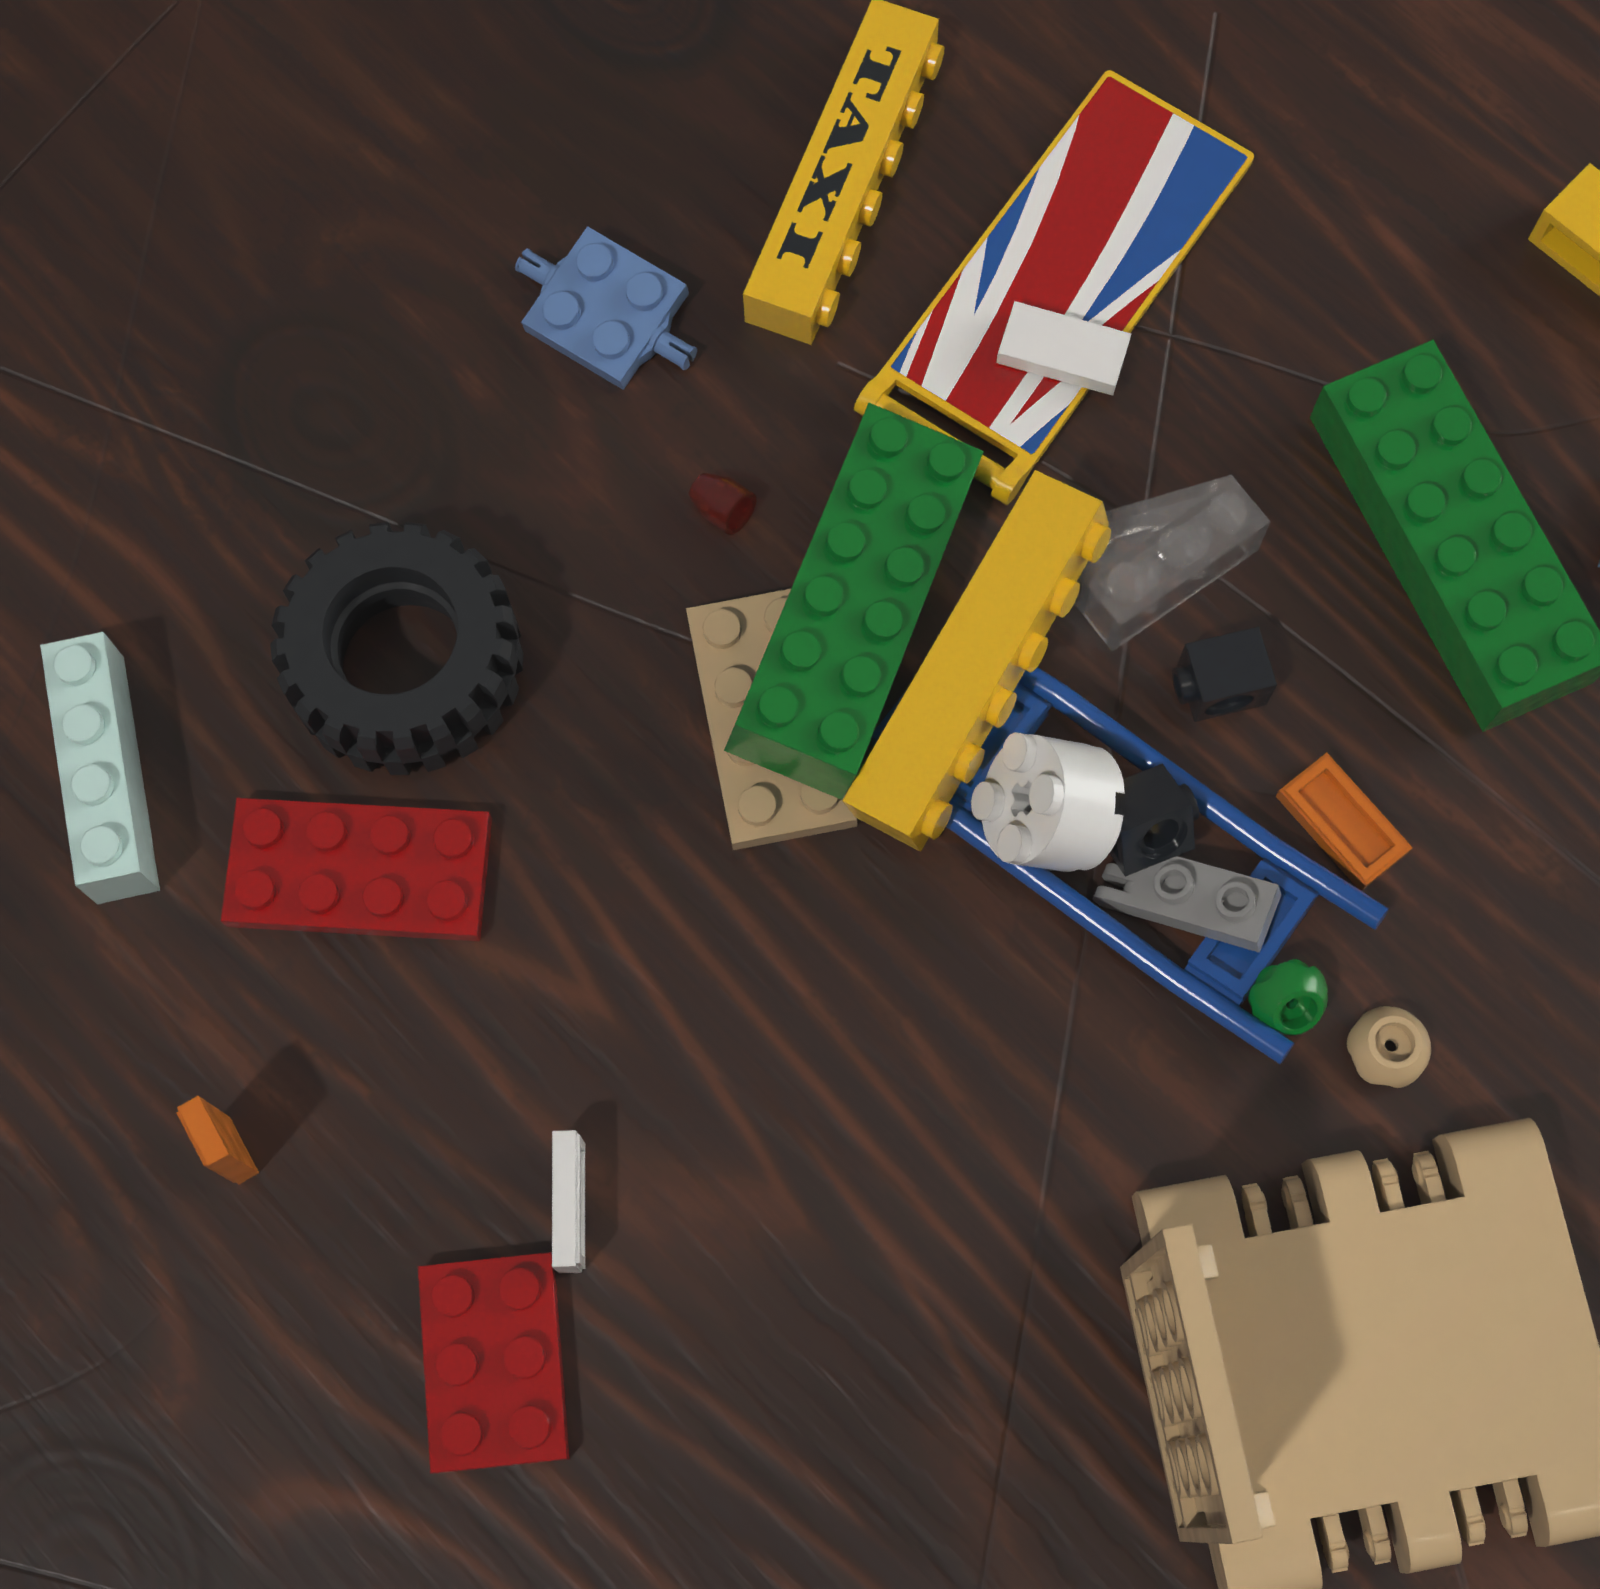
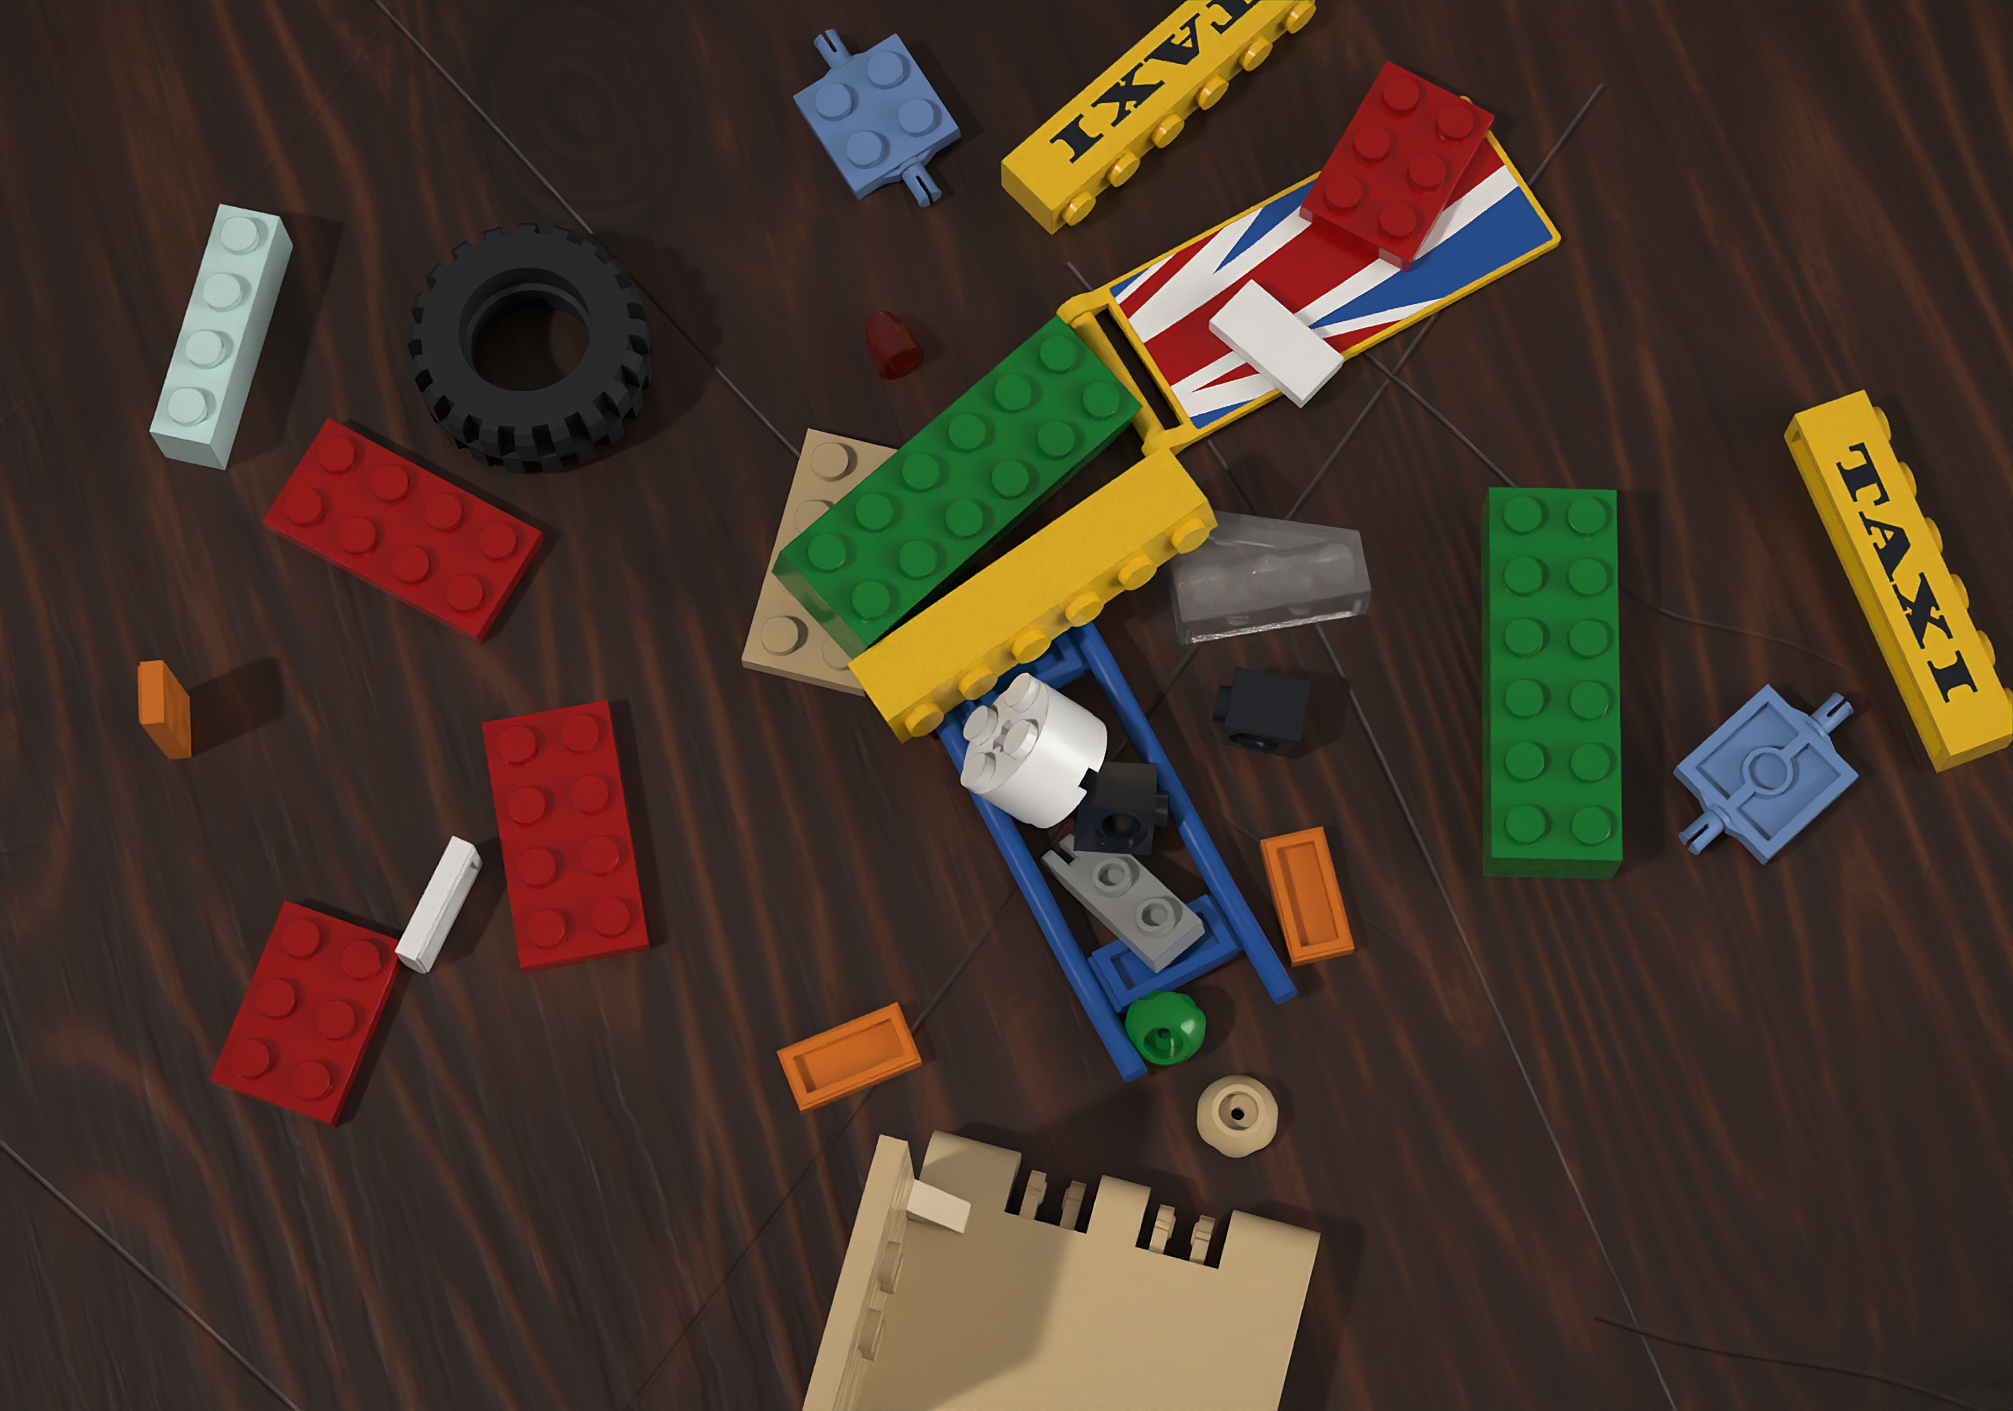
camera: 25 degrees right, 0 degrees up
(651, 1081) = (565, 836): none -> red plate
(1015, 1162) = (849, 1058): none -> orange tile
(1085, 152) = (1396, 166): none -> red plate

